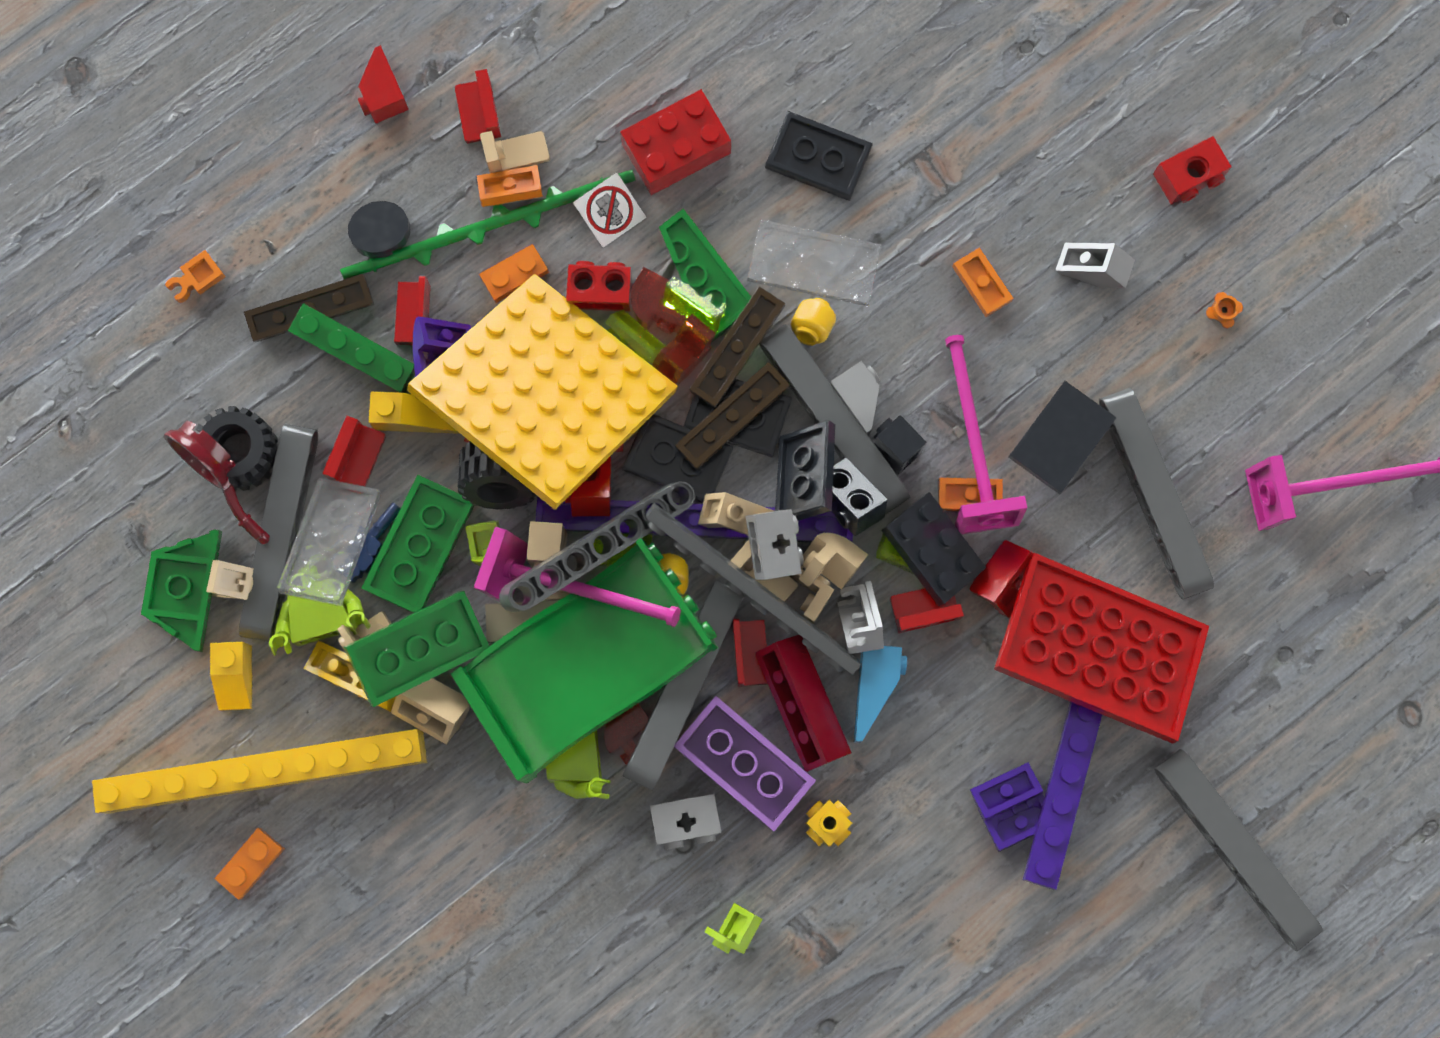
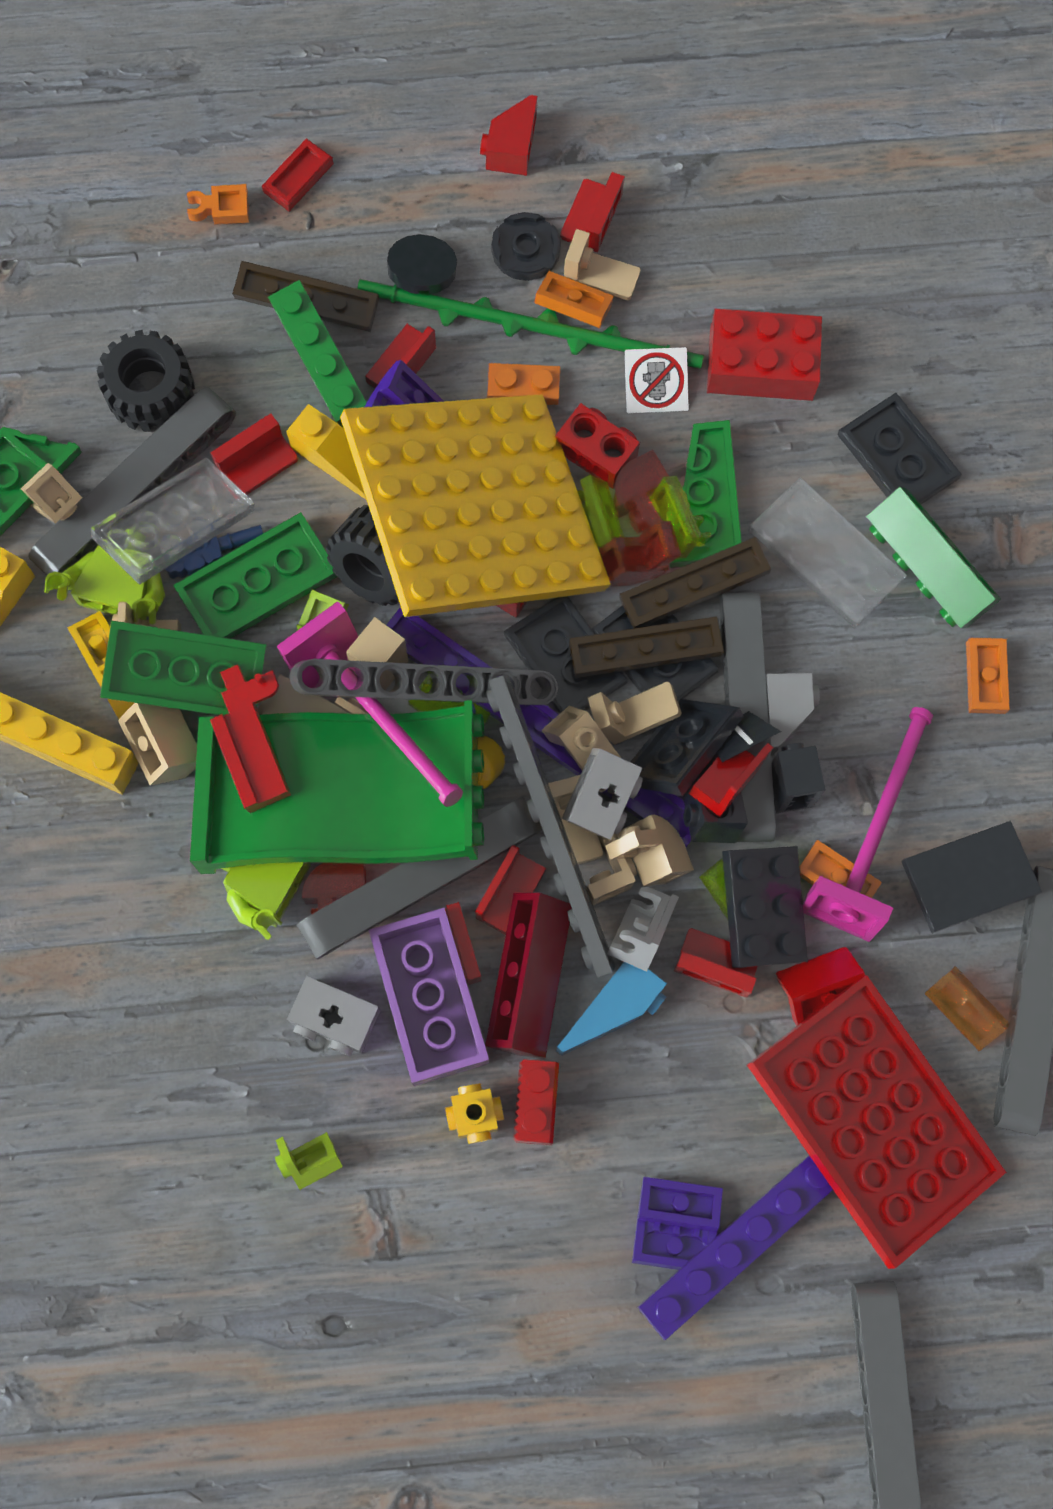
camera: 30 degrees right, 5 degrees down
(211, 463) = (108, 365): dark red piece -> none
(237, 216) = (297, 174): none -> red tile
(446, 166) = (526, 246): none -> black tile
(498, 669) = (246, 741): none -> red piece
(594, 494) = (459, 632): red brick -> none
(742, 710) = (463, 943): none -> red tile
(755, 469) = (635, 714): none -> tan bracket
(813, 321) = (788, 607): yellow head -> none
(846, 437) = (747, 734): none -> black sticker
(853, 475) = (726, 780): none -> red panel
(865, 787) = (536, 1102): none -> red brick
(892, 221) = (932, 558): none -> brick
(1114, 530) = (967, 1008): none -> clear orange plate

